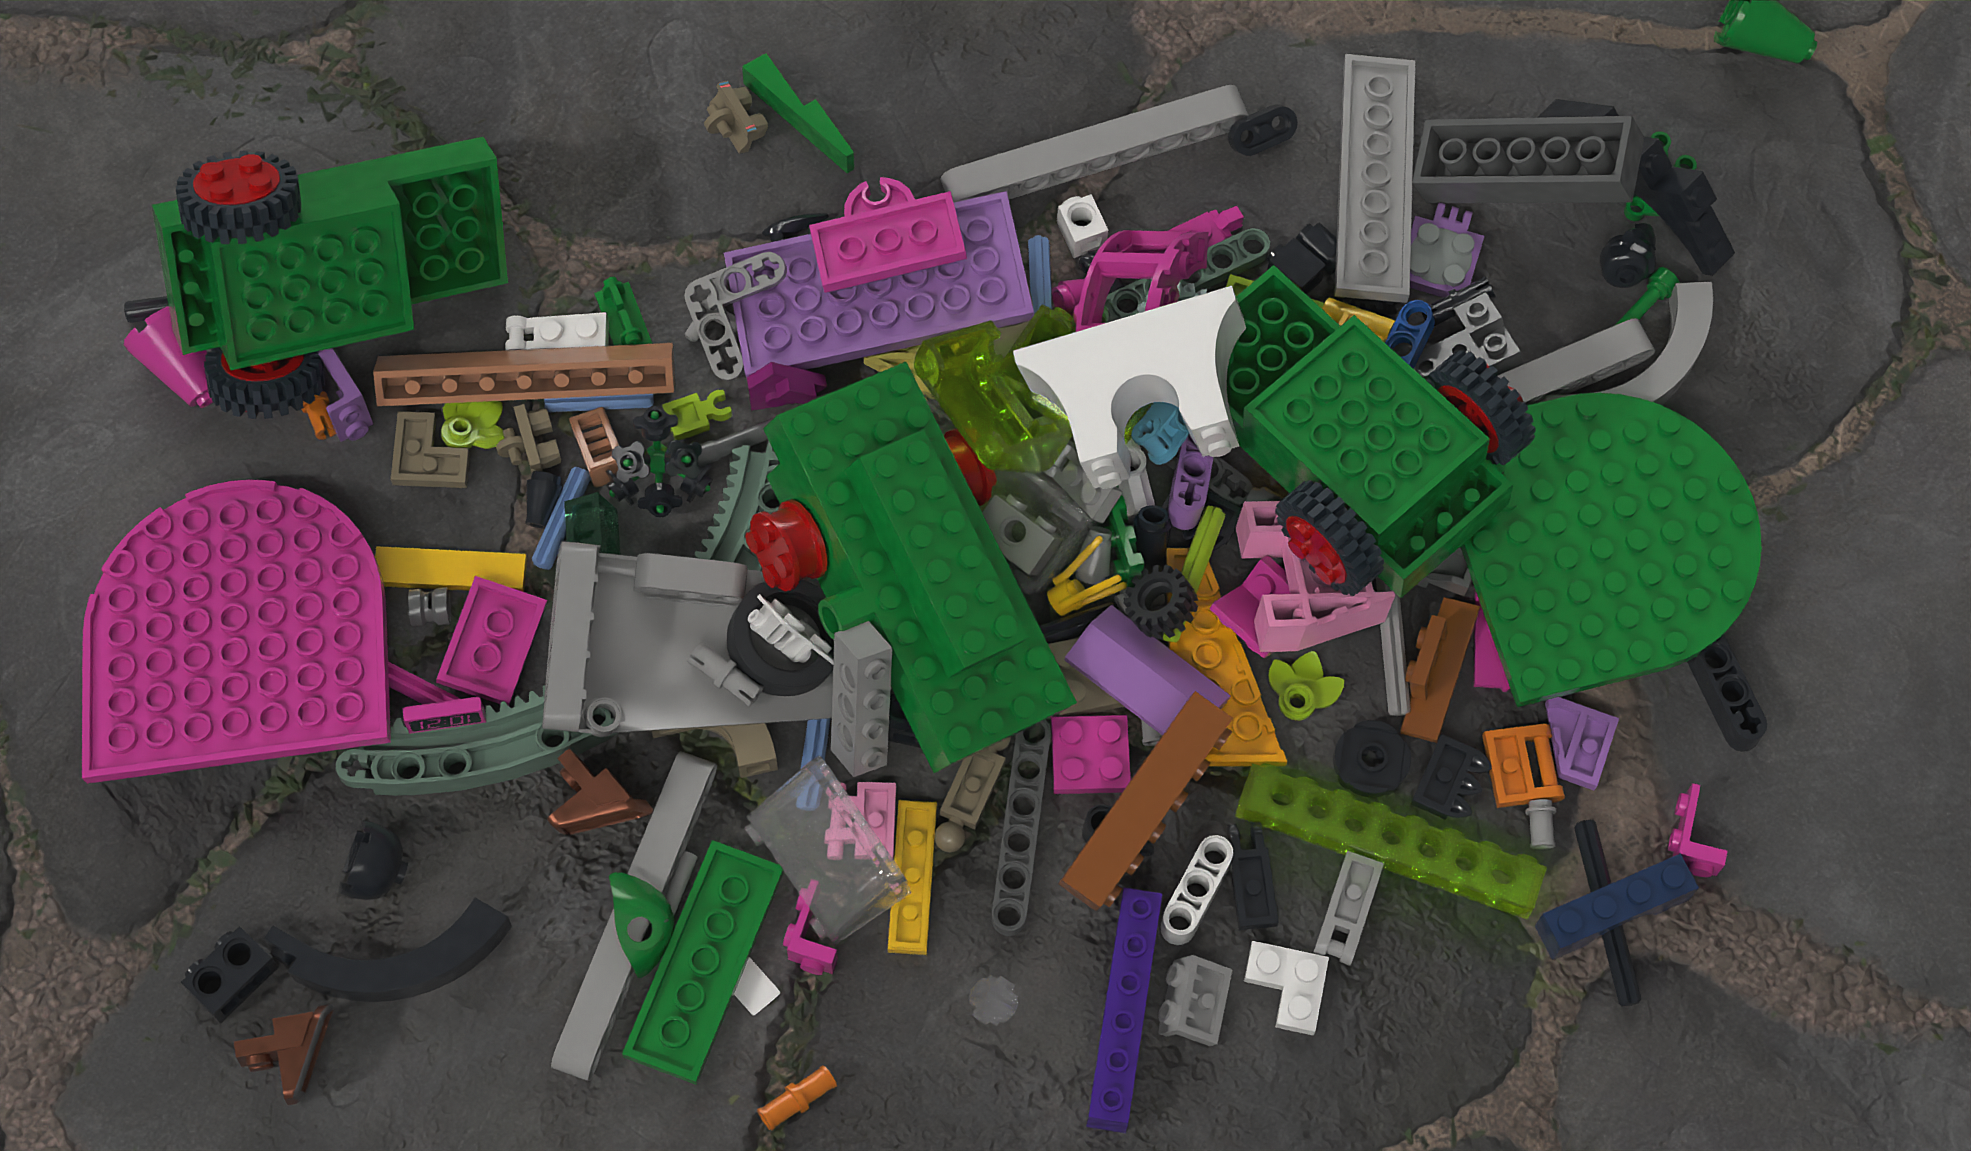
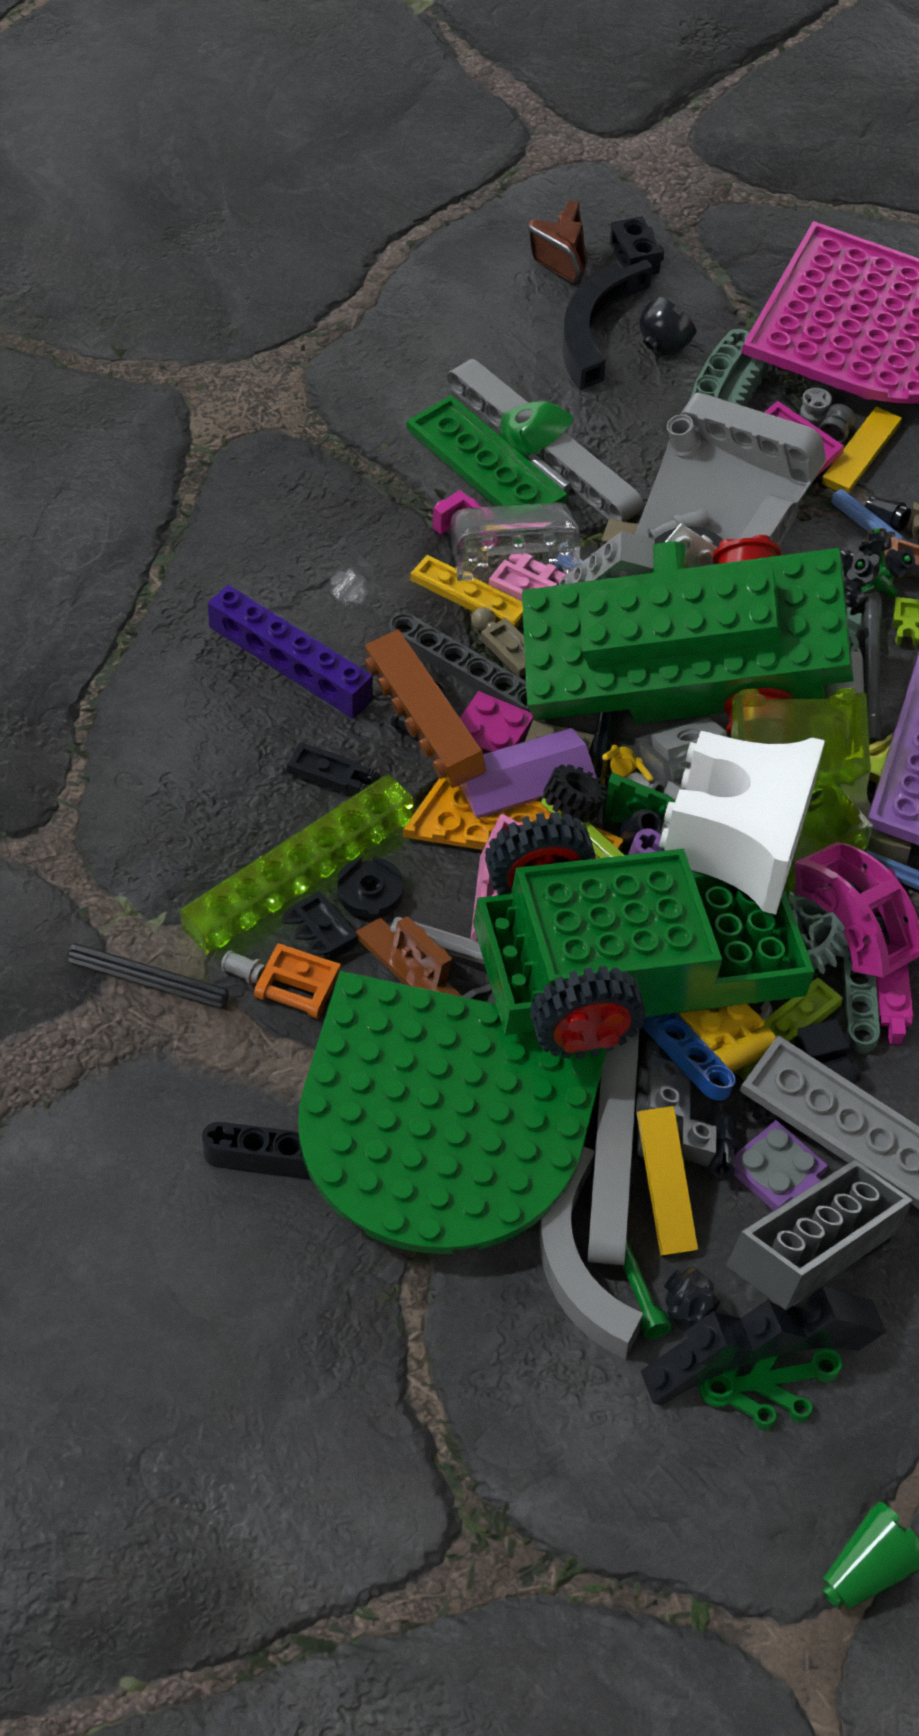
camera: 120 degrees right, 15 degrees down
(403, 637) = (815, 405): none -> light grey wheel
(416, 687) = (788, 397): dark pink axle -> none
(444, 715) = (743, 377): dark pink tile -> none
(594, 522) = (837, 510): clear green brick -> none
(598, 799) = (637, 441): copper piece -> none
(755, 988) = (451, 484): white sticker -> none
(783, 385) = (895, 664): magenta plate -> none
(797, 1097) = (359, 468): orange pin -> none
(1195, 1000) = (265, 696): light grey bracket -> none
(1199, 872) = (344, 729): white beam -> none
(1297, 975) = (244, 766): white plate -> none
(1305, 682) = (454, 882): lime plate -> none
(1349, 906) = (265, 812): light grey plate -> none
(1536, 322) = (667, 1180): none -> yellow tile
(1579, 740) = (286, 1028): medium lavender wing -> none
(1604, 909) = (141, 982): dark blue arch -> none
(1700, 858) = (149, 1046): dark pink bracket -> none

